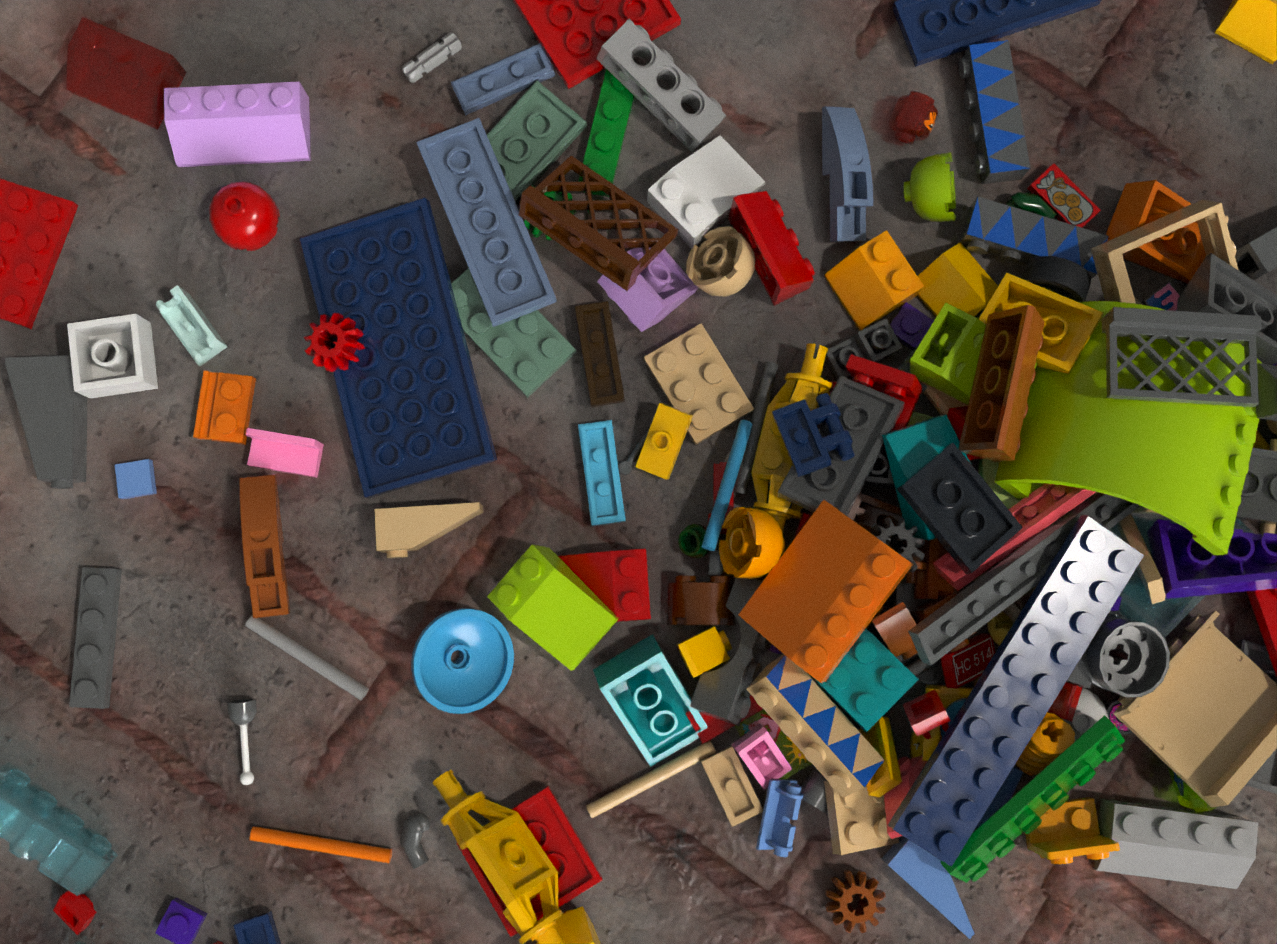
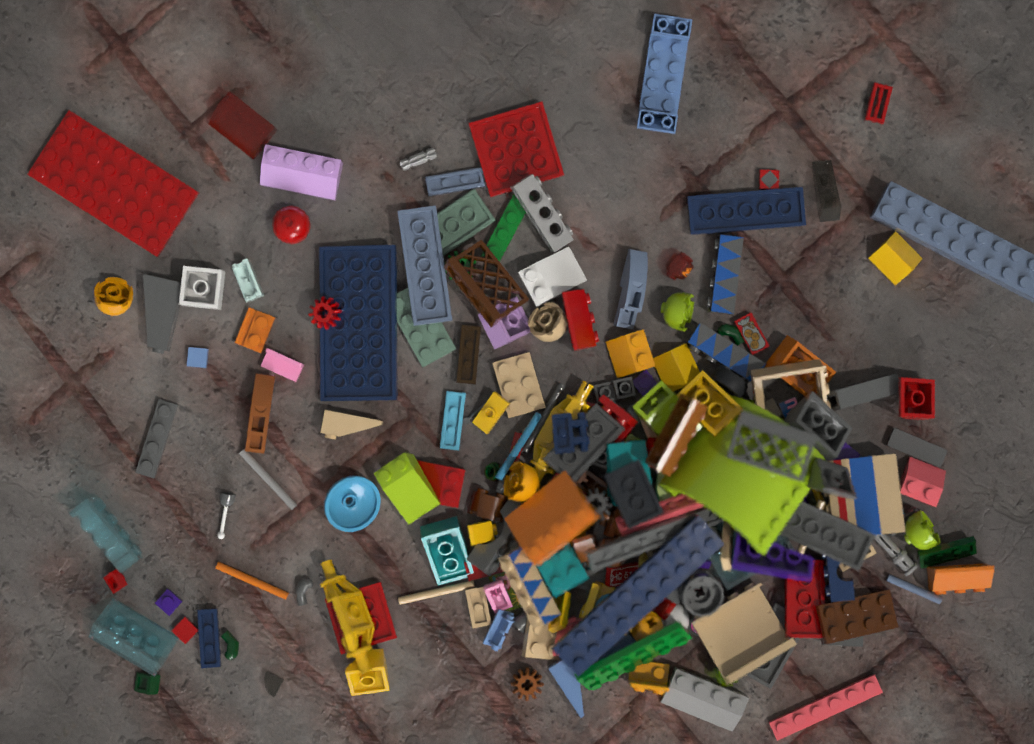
camera: 15 degrees right, 5 degrees up
(926, 713) = (588, 595): red tile -> none

